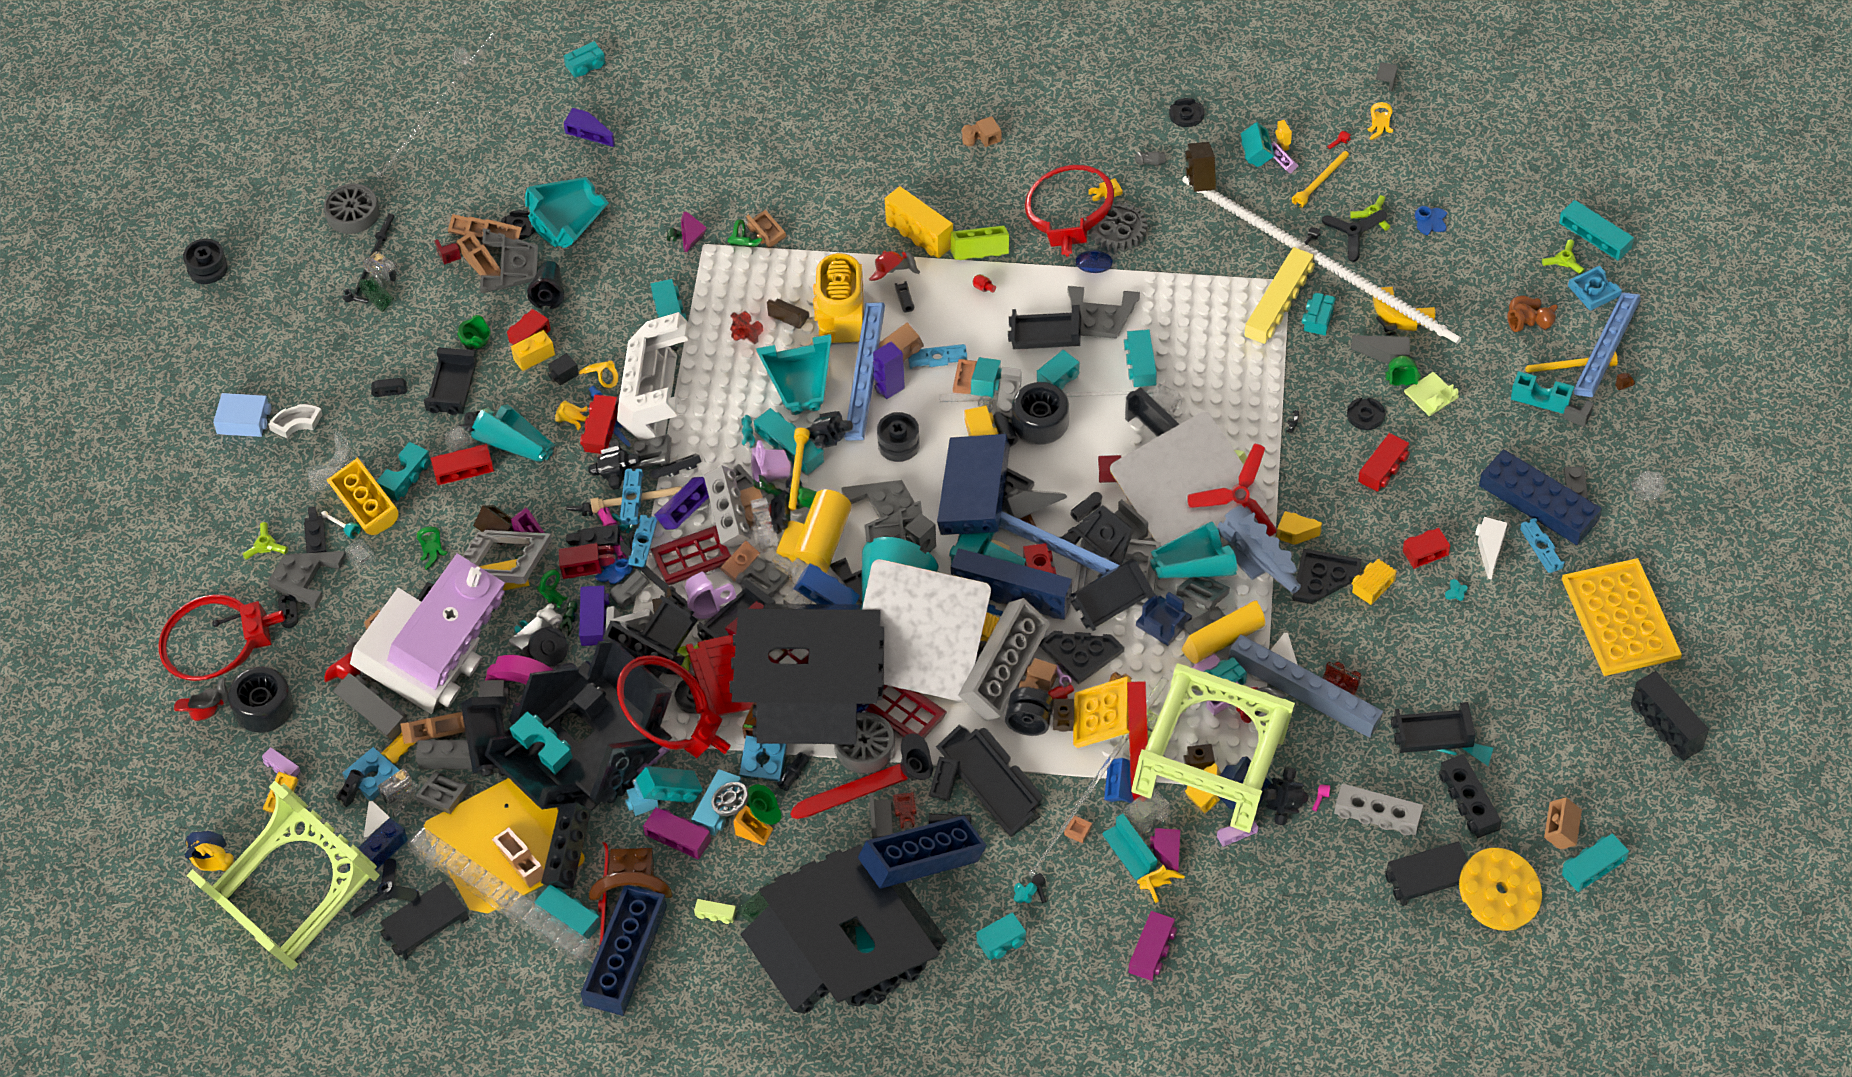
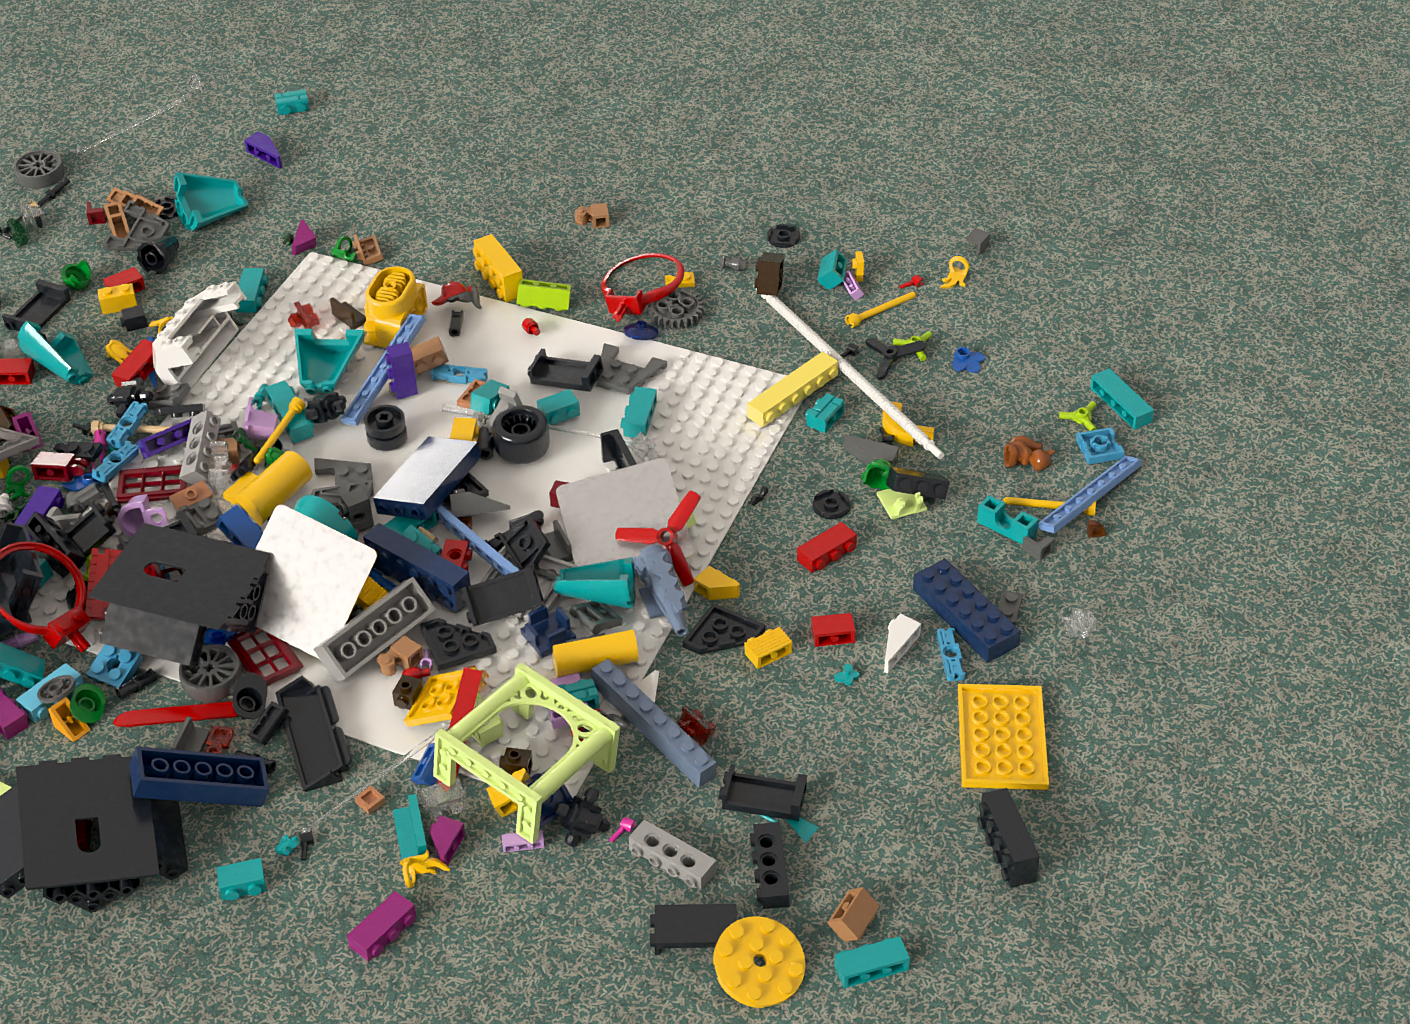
camera: 15 degrees right, 10 degrees down
(1029, 711) = (372, 679): black wheel -> none
(1444, 373) = (916, 481): none -> black brick

